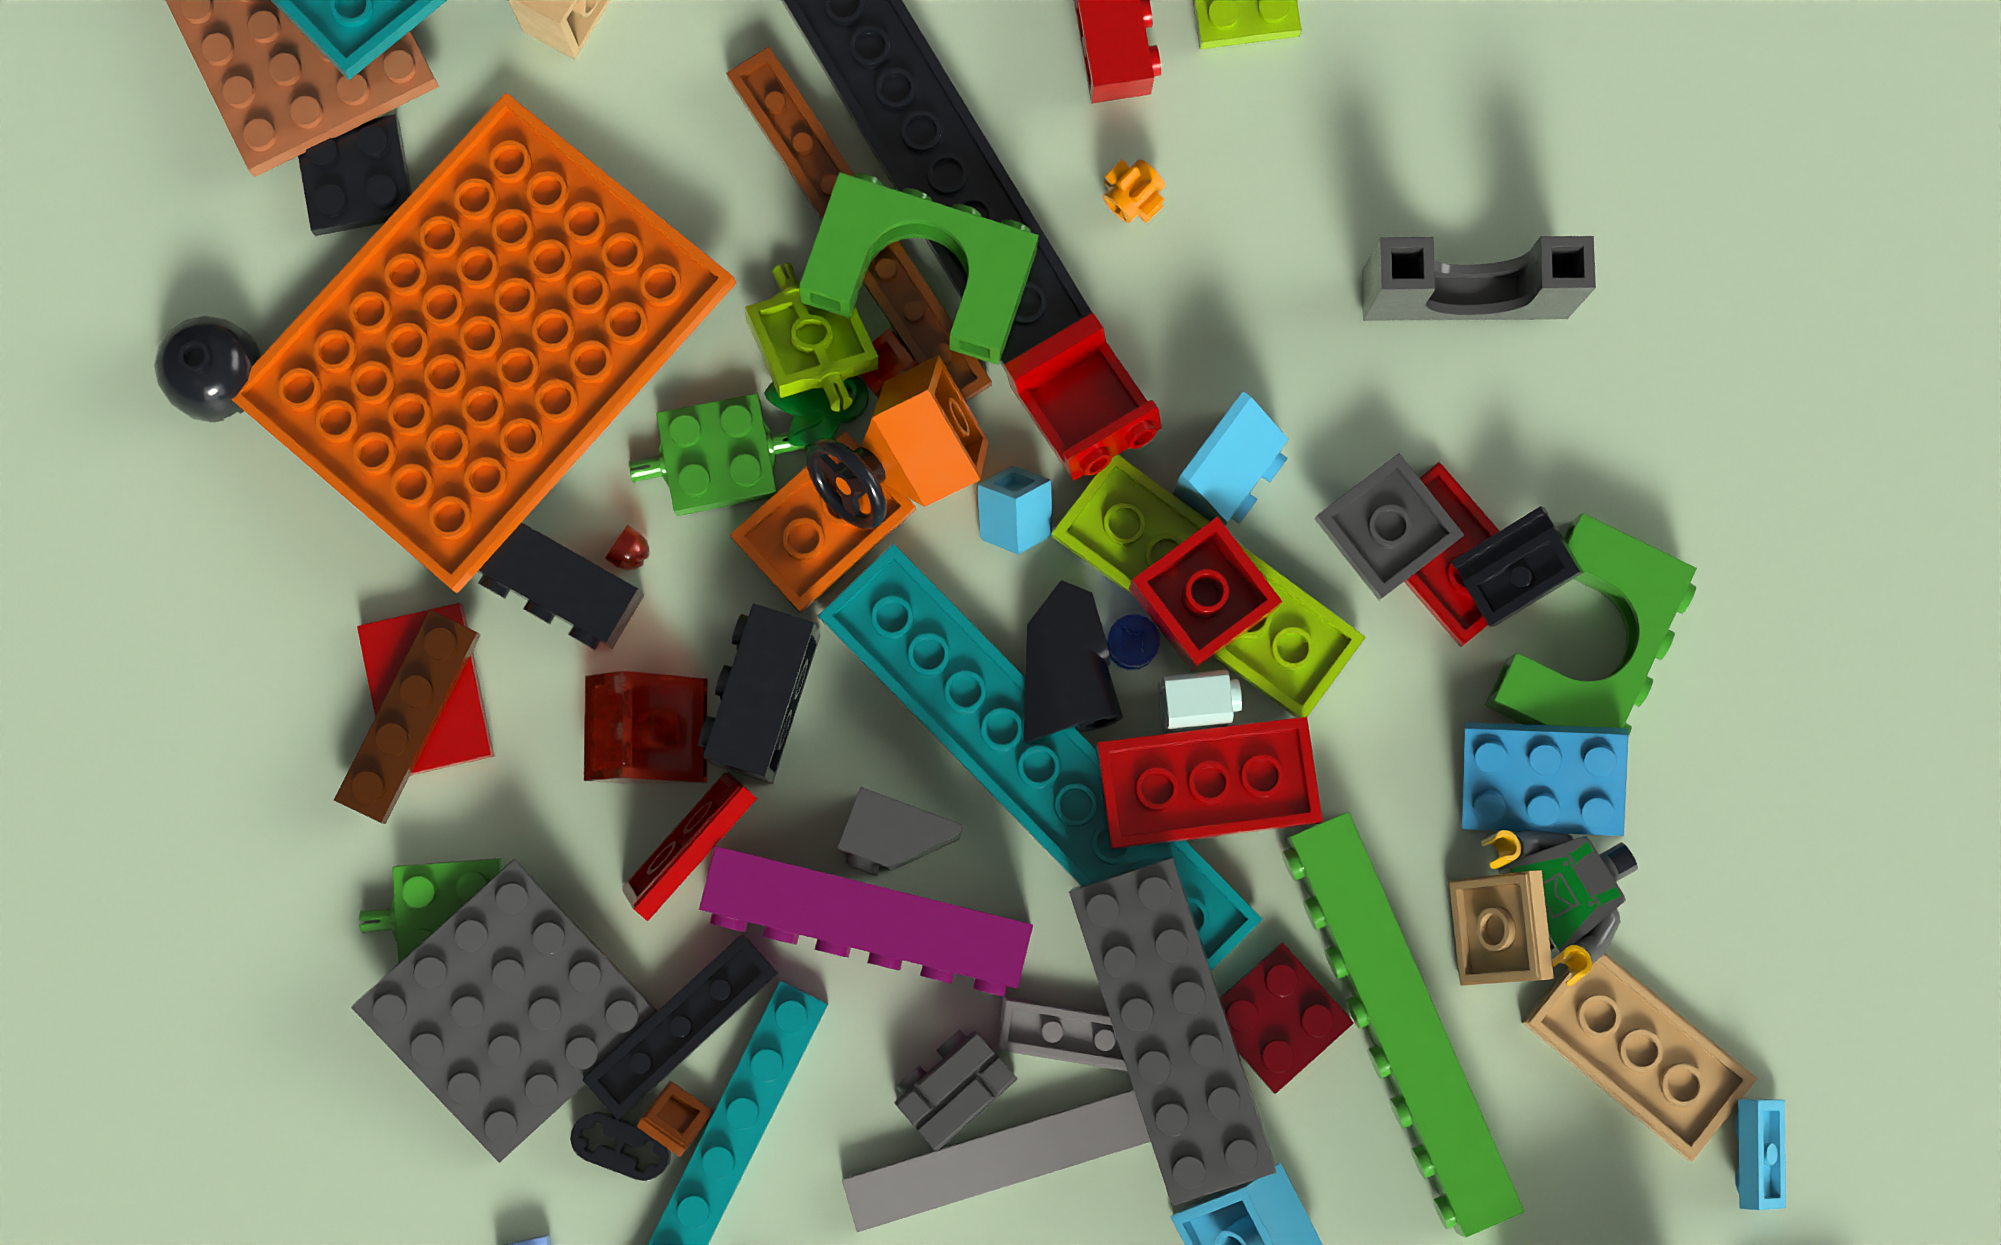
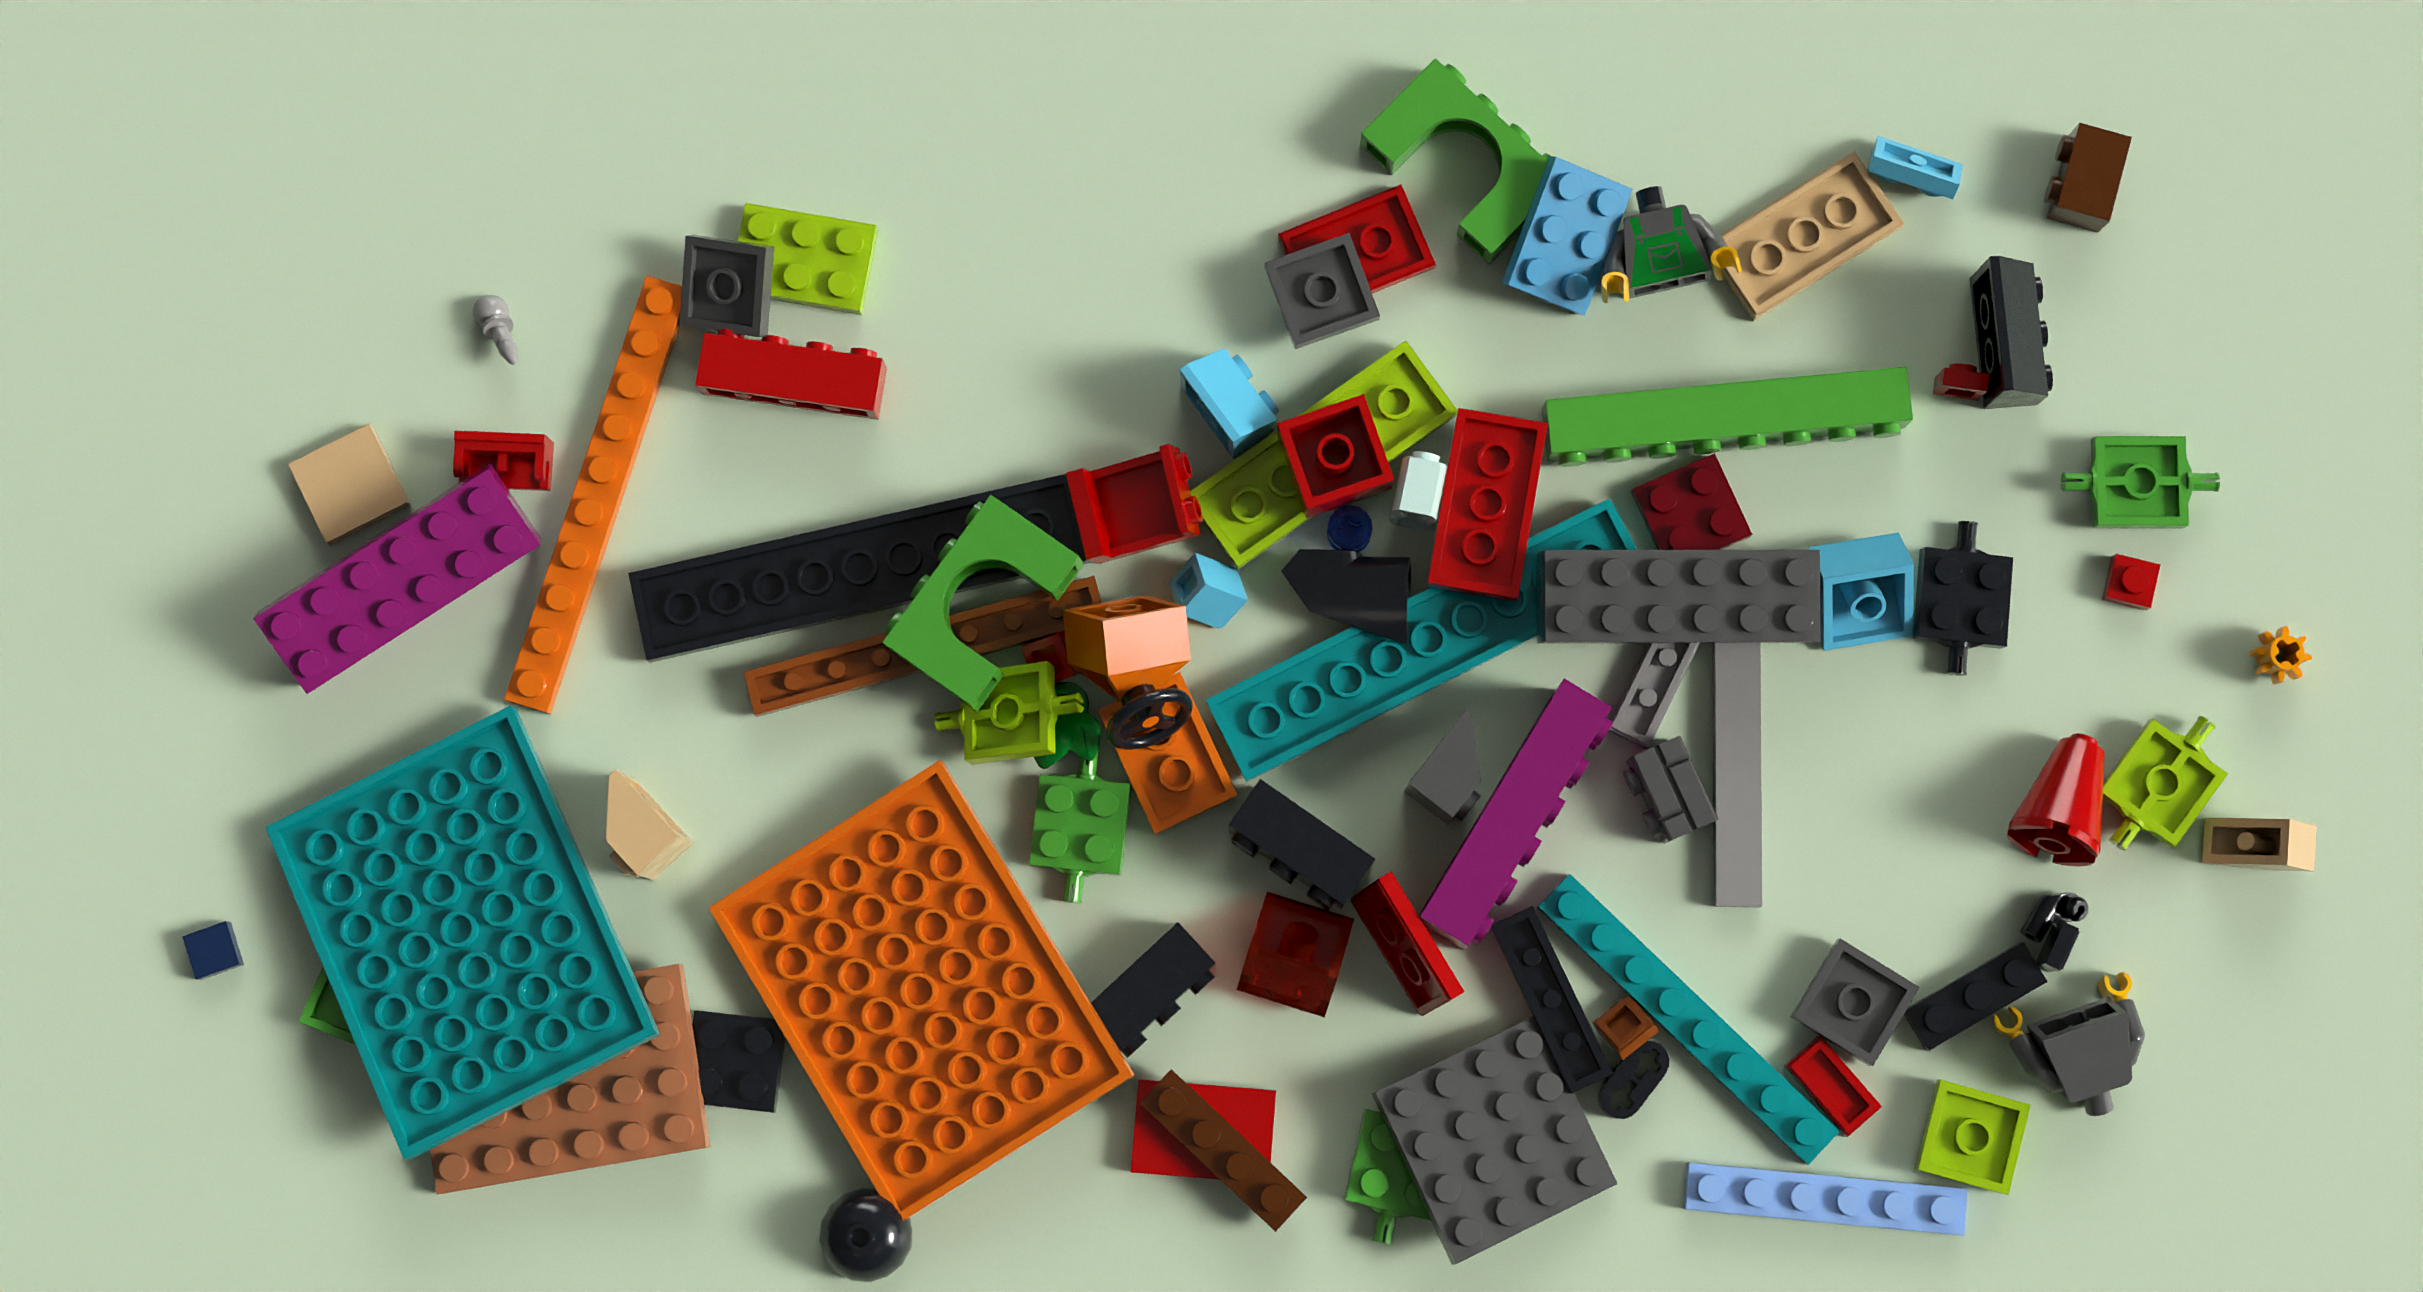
camera: 65 degrees left, 0 degrees up
(629, 550) = (1138, 923): clear red hinge -> none
(1133, 191) = (970, 407): light orange gear -> none
(1501, 928) = (1676, 310): tan tile -> none
(1517, 566) = (1389, 199): black plate -> none
(1545, 283) = (1131, 196): dark grey arch -> none

